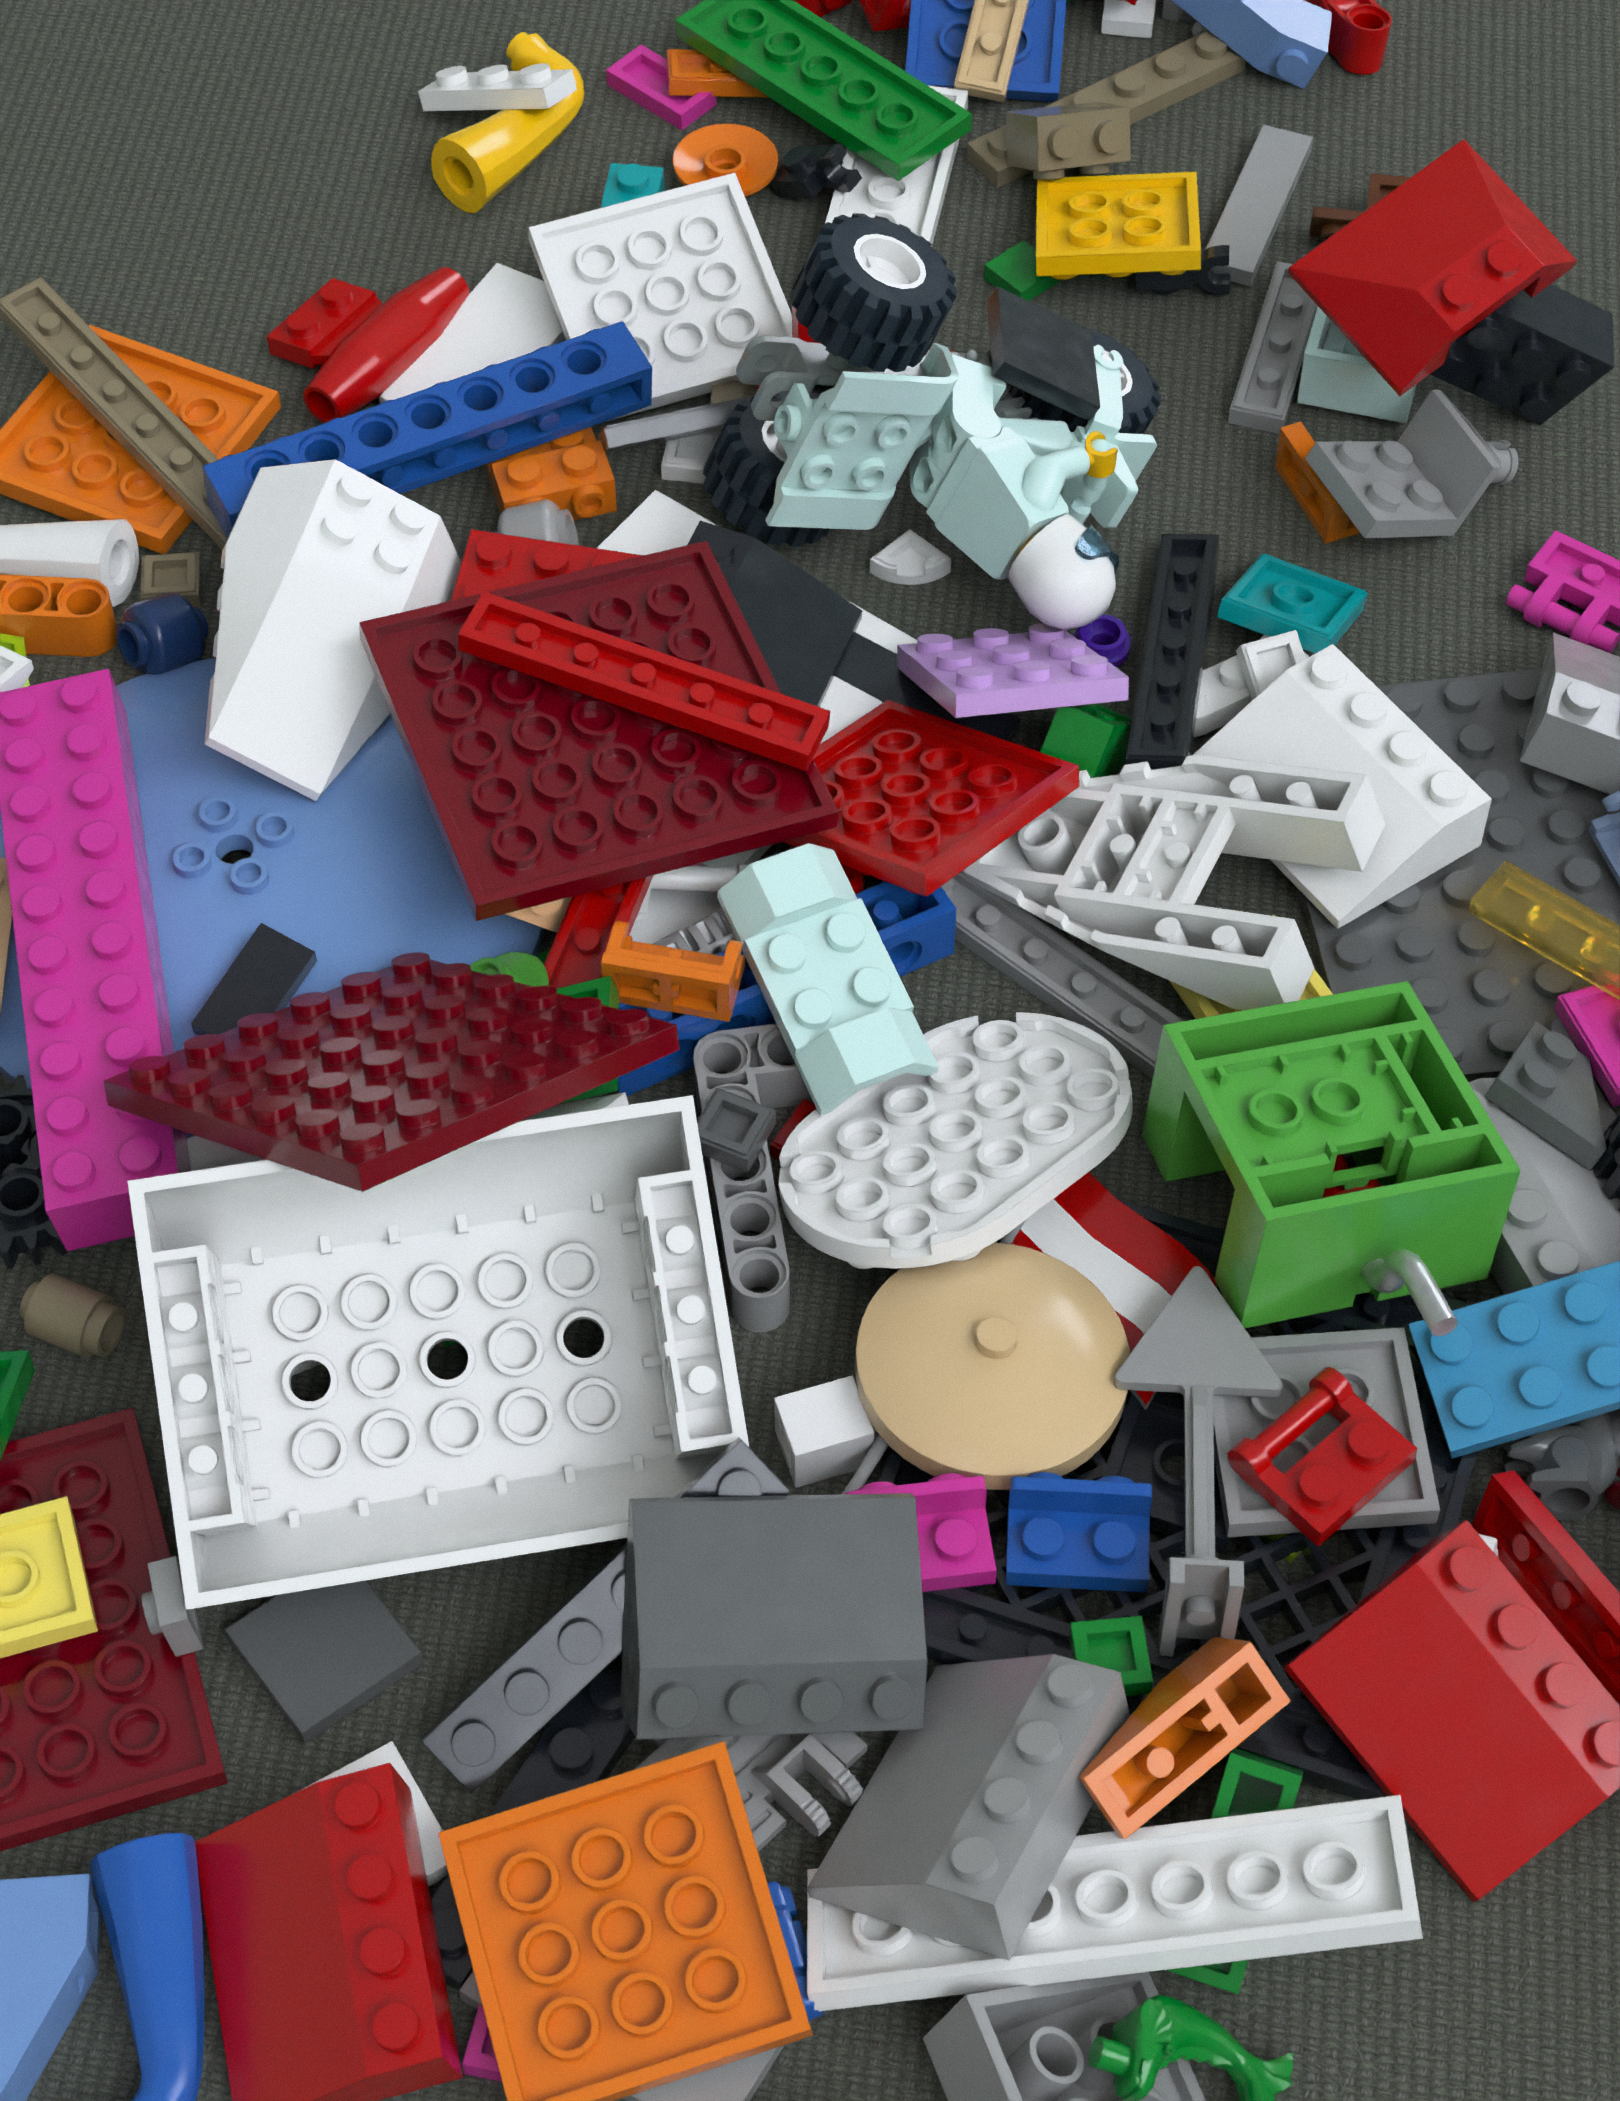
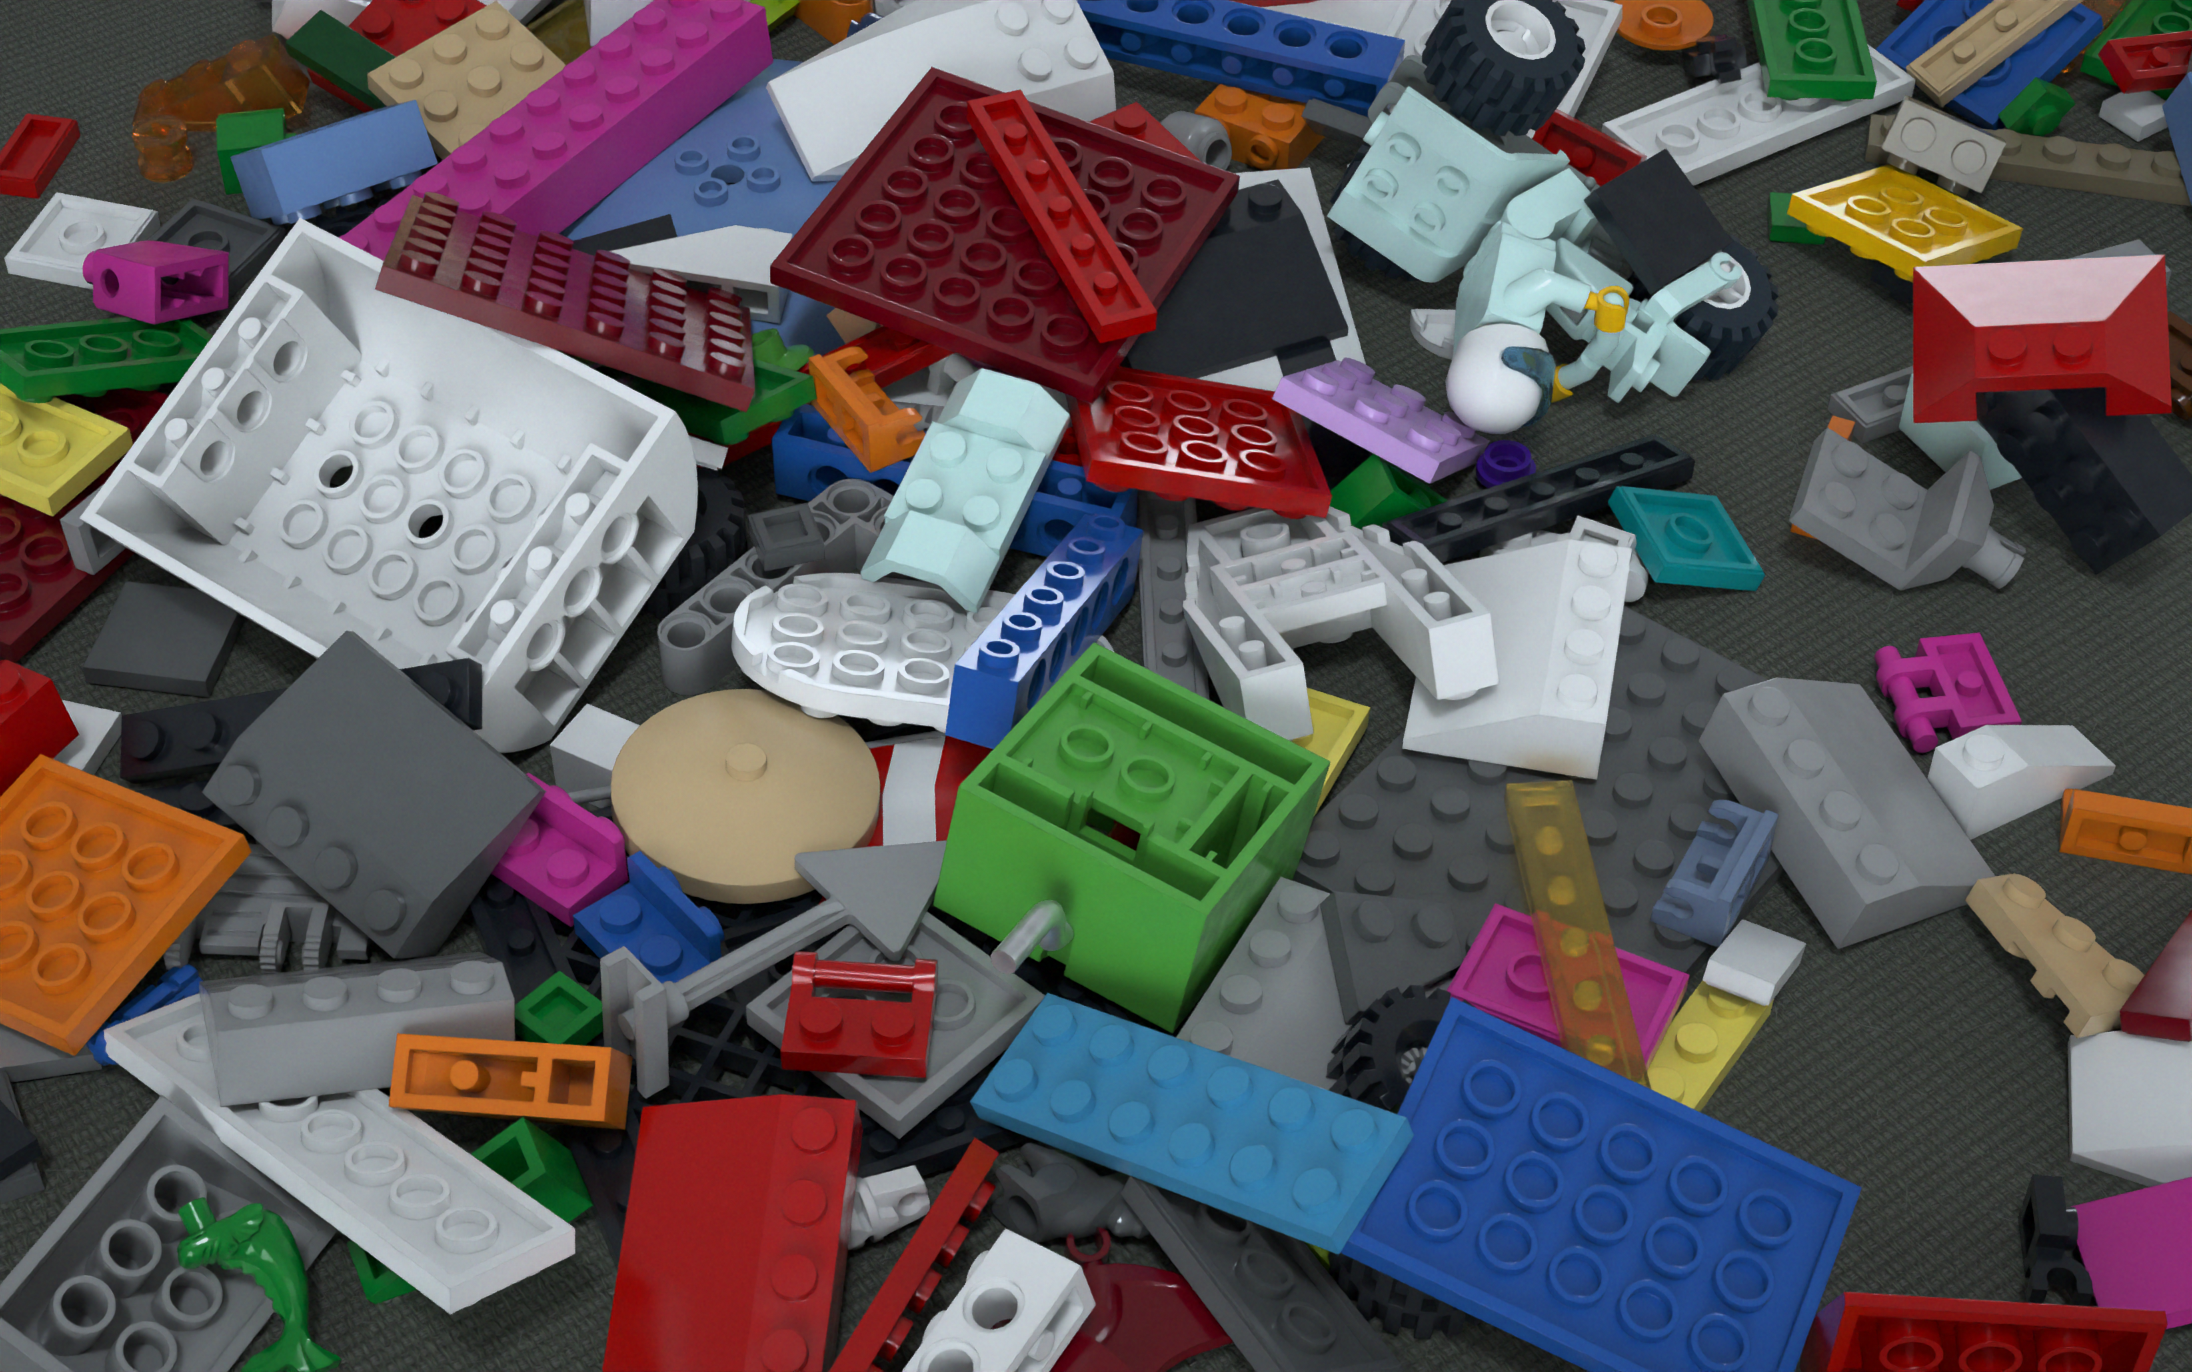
camera: 45 degrees right, 10 degrees down
(378, 922) = (721, 258): none -> white slope
(1051, 1046) = (1044, 629): none -> blue brick
(1085, 60) = (2037, 108): none -> green plate

